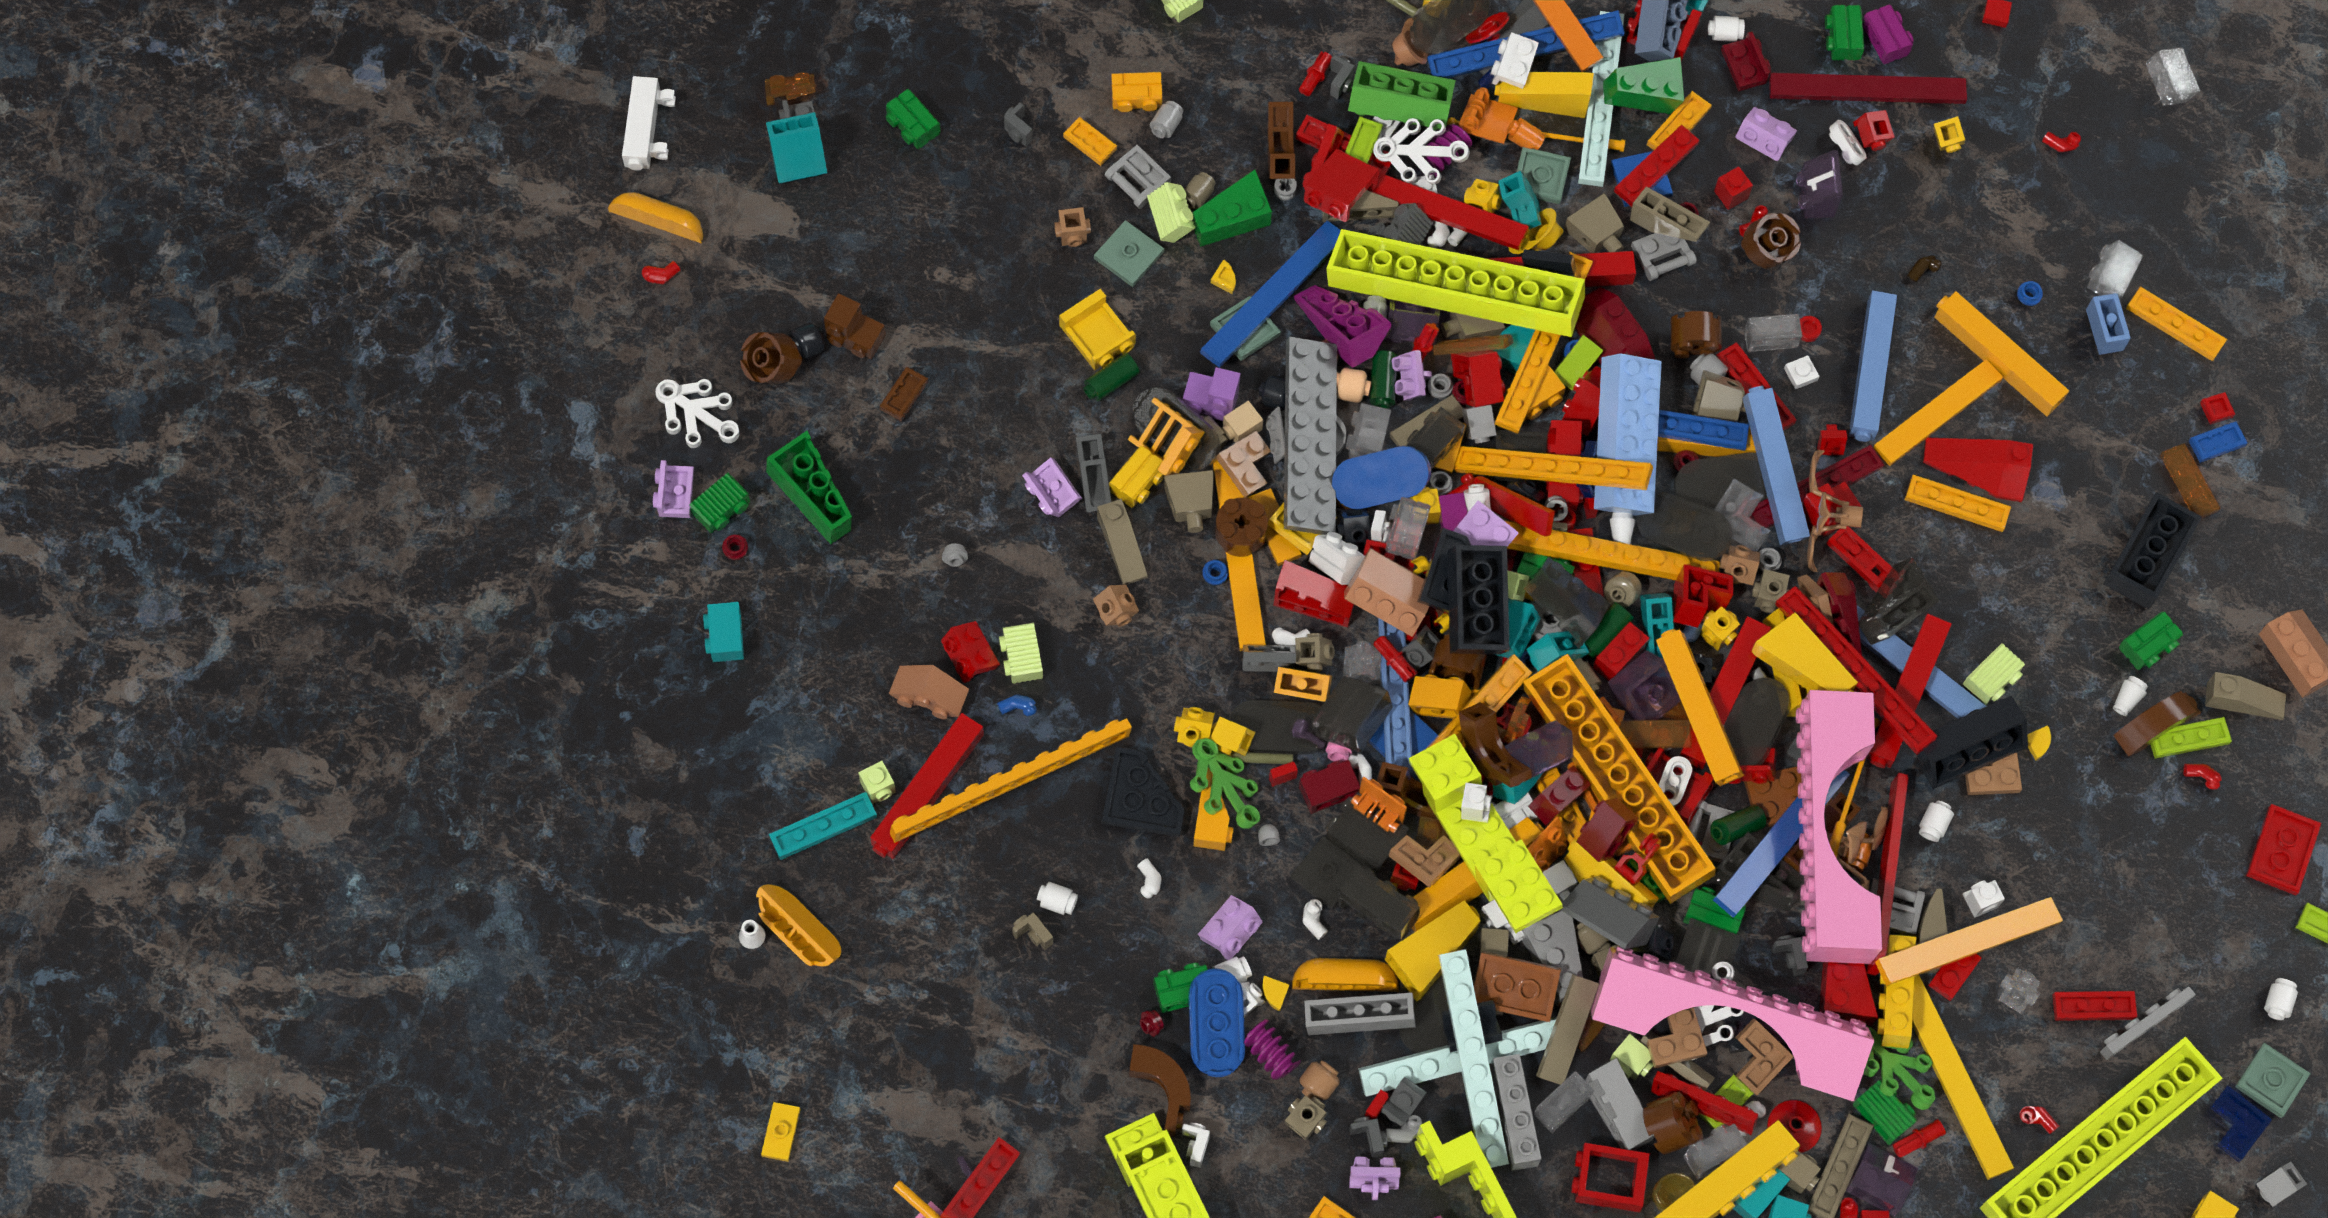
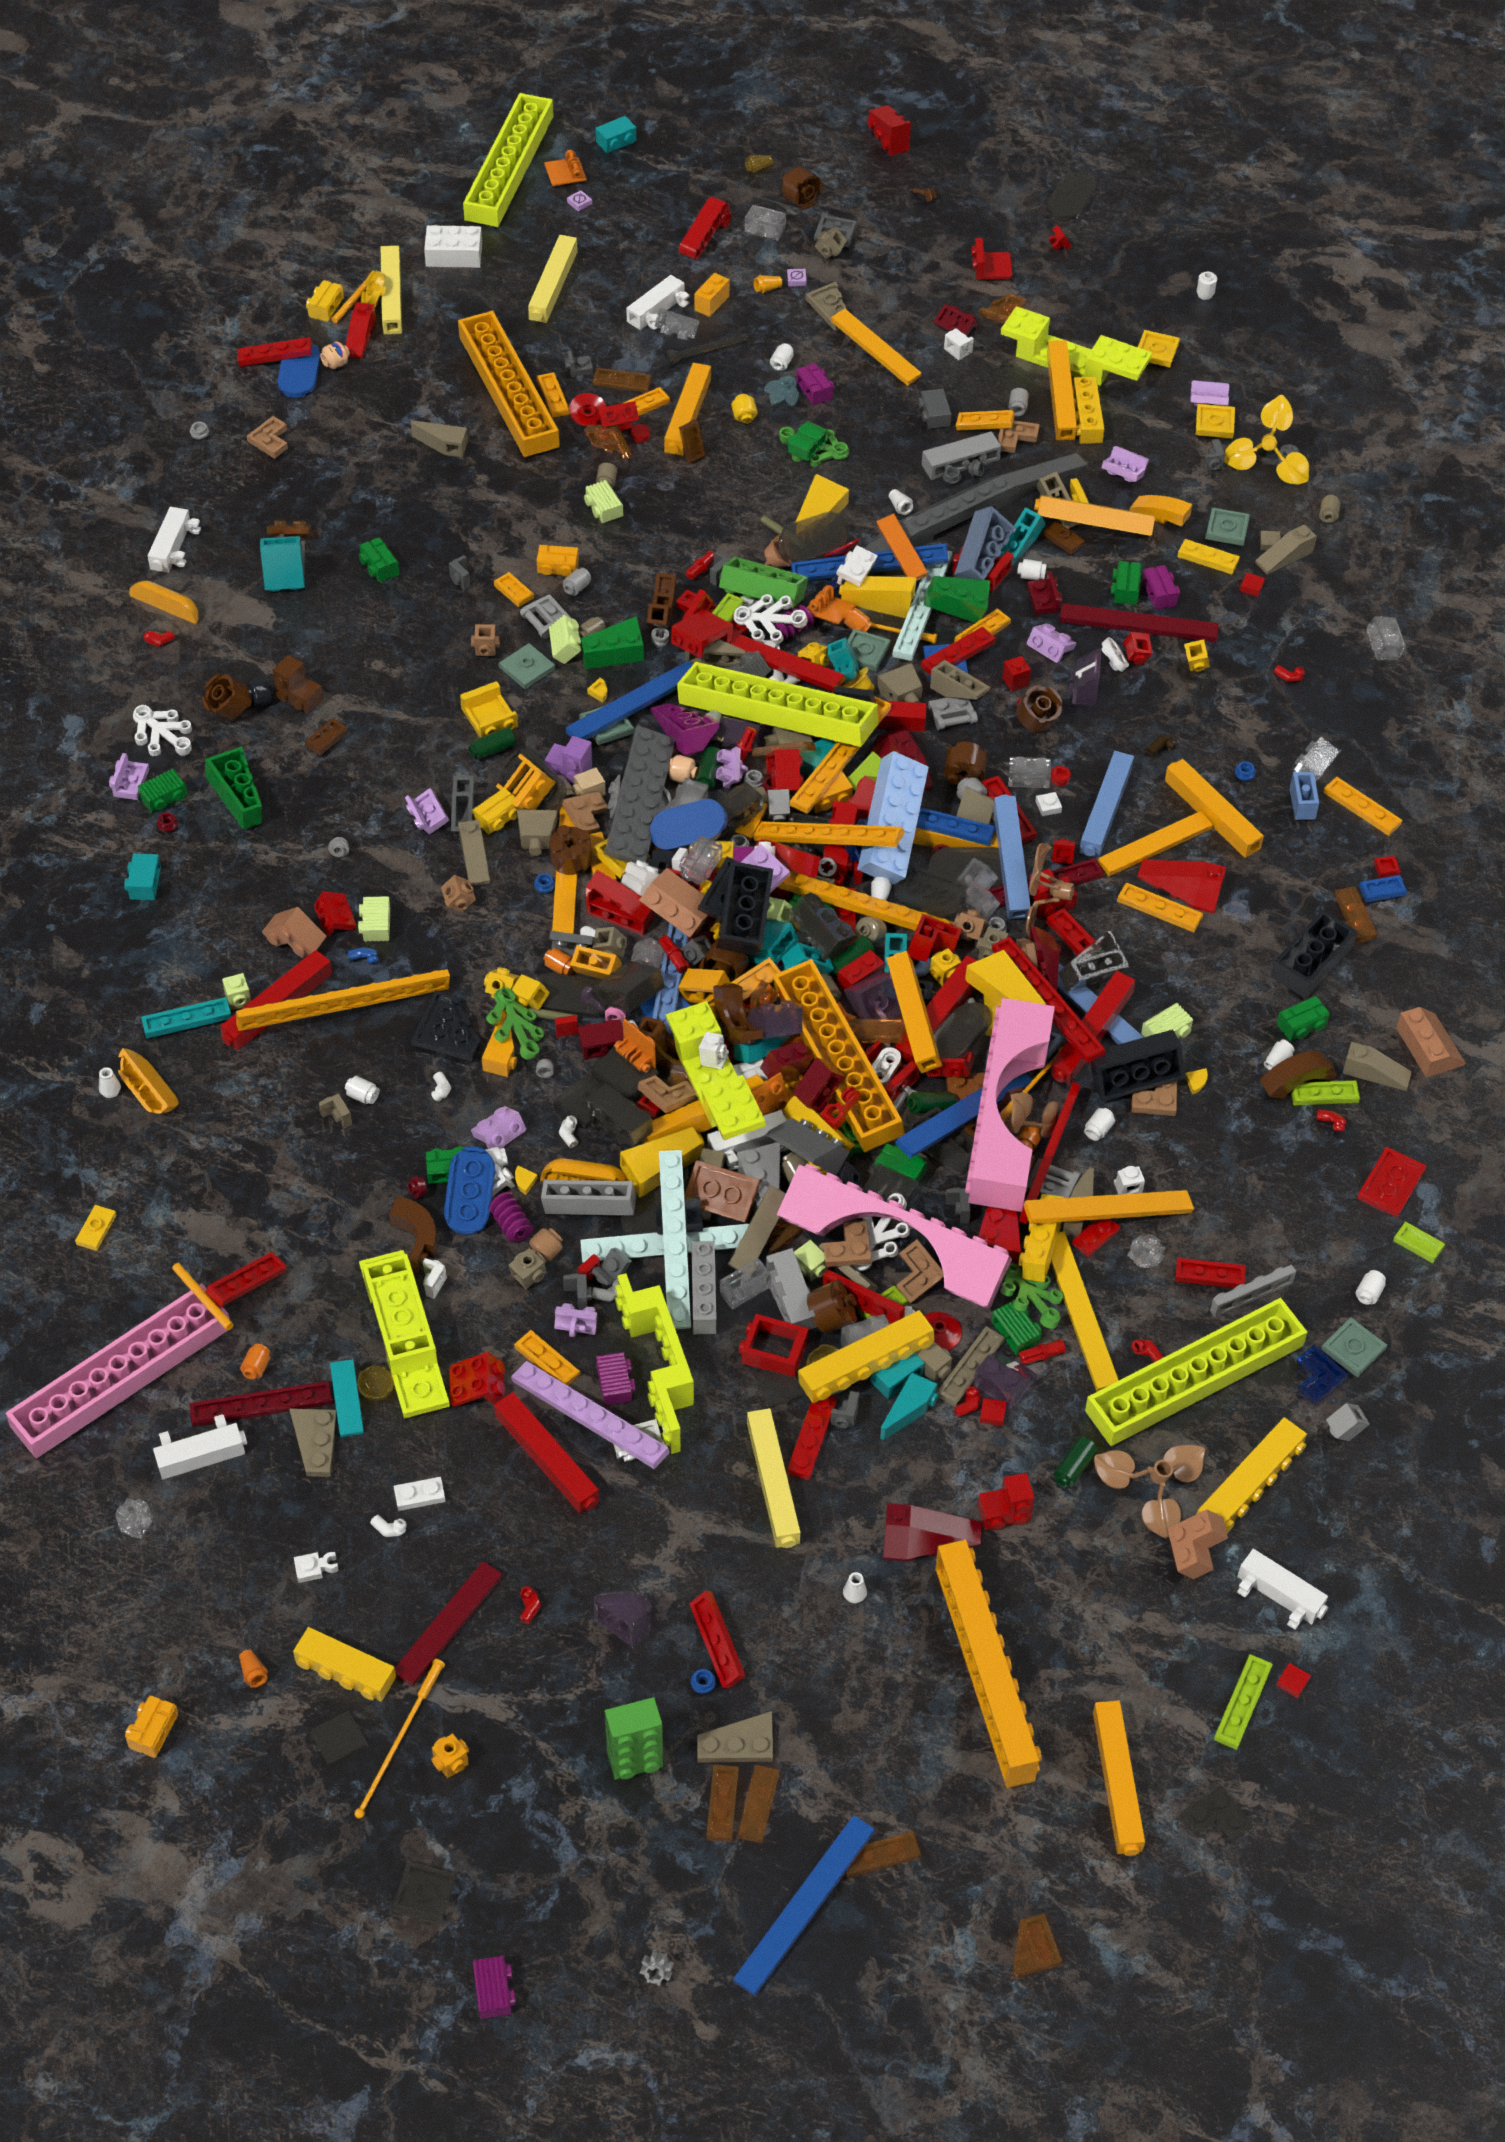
camera: 10 degrees right, 15 degrees down
(1256, 683) = (558, 961): none -> orange brick

